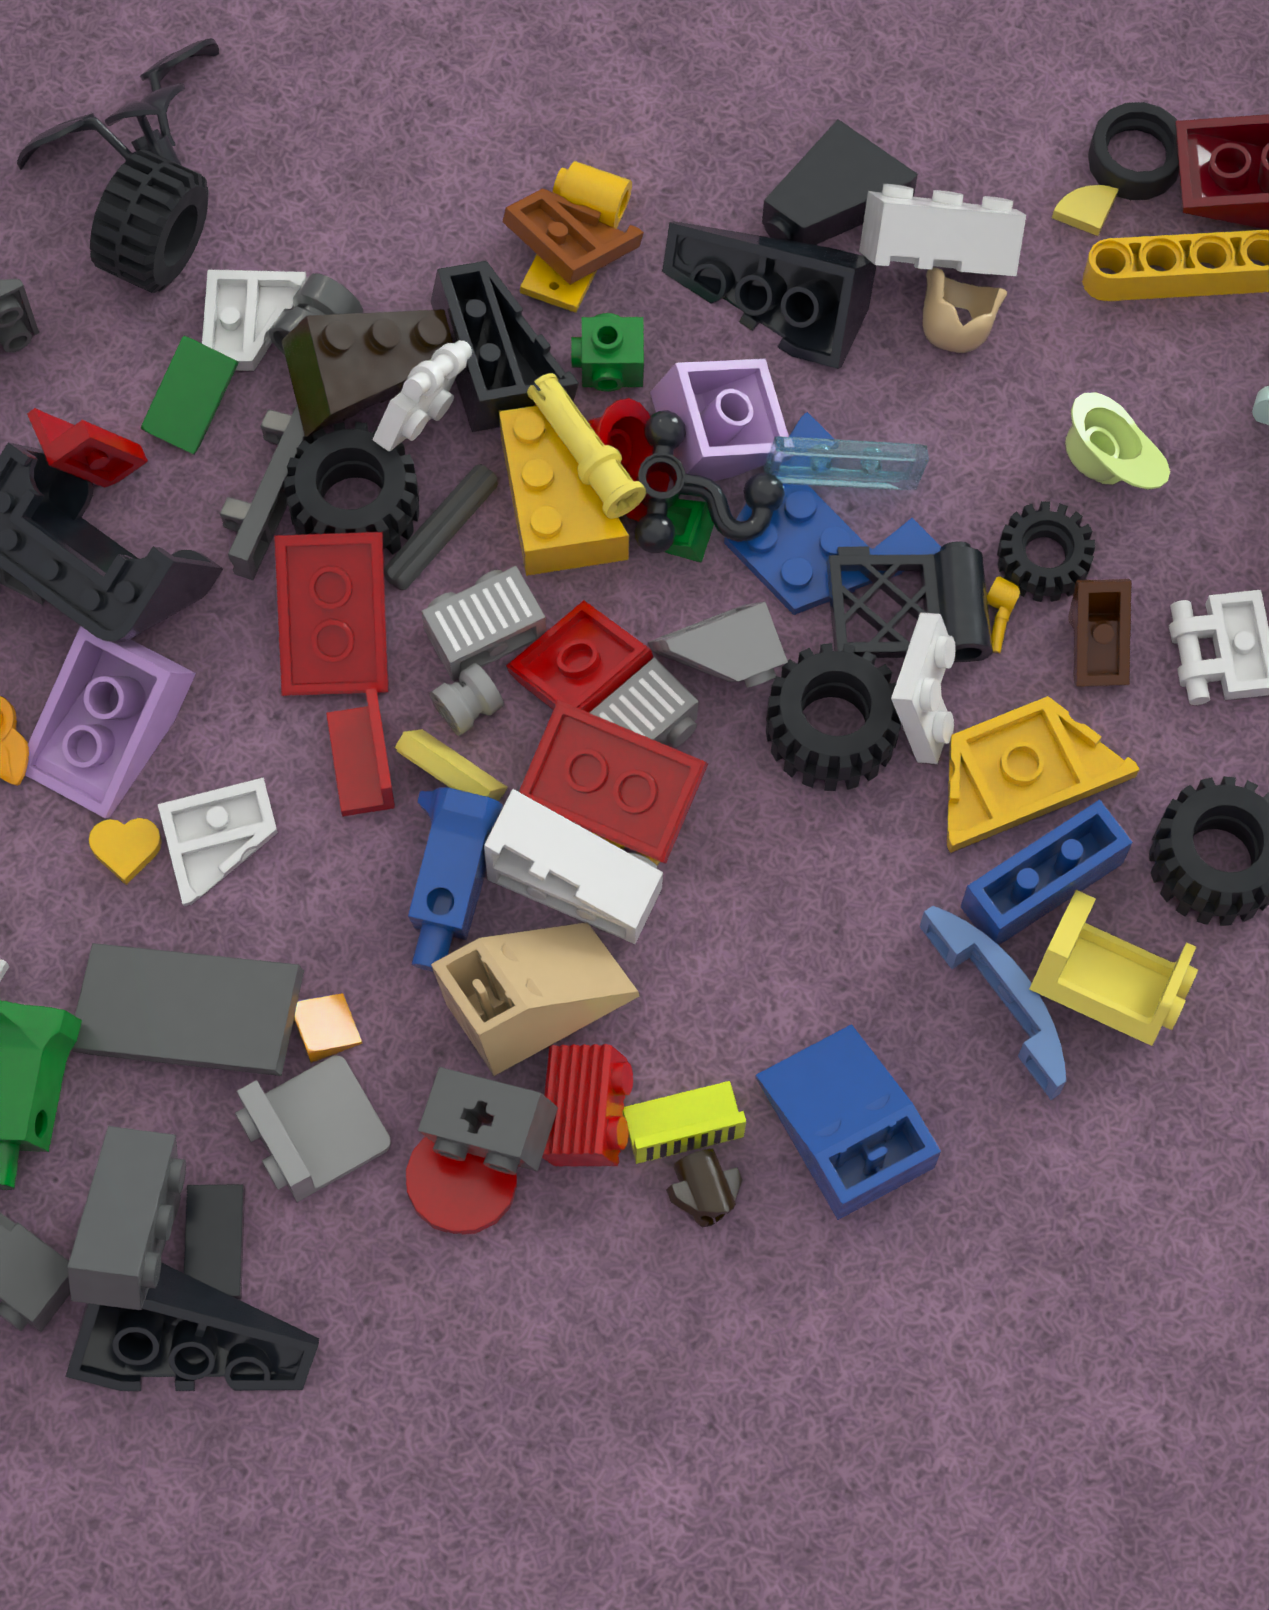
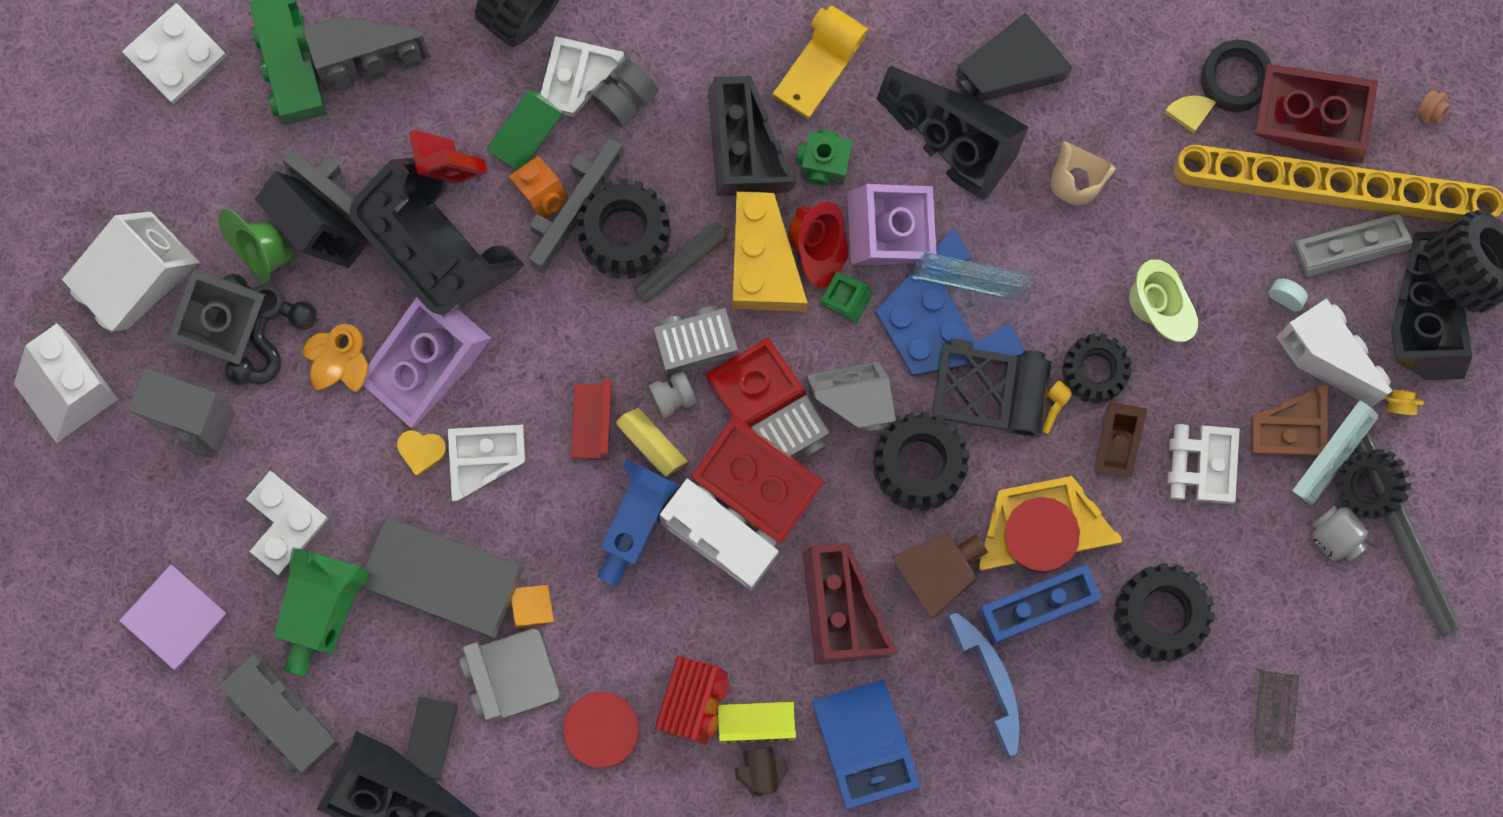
camera: 10 degrees right, 10 degrees up
(126, 1218) = (374, 722): dark grey wedge -> none
(224, 465) = (540, 187): none -> orange bracket
(331, 613) = (592, 315): red tile -> none
(357, 360) = (647, 135): dark brown wedge -> none
(423, 395) = (687, 171): white plate -> none
(518, 1119) = (645, 705): dark grey brick -> none
(530, 989) = (674, 613): tan slope -> none
(568, 234) = (814, 62): dark orange wing -> none
(598, 463) = (795, 248): light yellow pin -> none
(656, 531) = (828, 301): black piece -> none
(769, 936) = (841, 609): none -> dark red wedge
(895, 856) = (940, 570): none -> reddish brown torso
(919, 689) = (980, 463): white plate -> none
(942, 231) = (1078, 117): white wedge -> none
(1026, 779) = (1041, 534): none -> red tile
(1112, 977) = (1067, 686): light yellow panel -> none

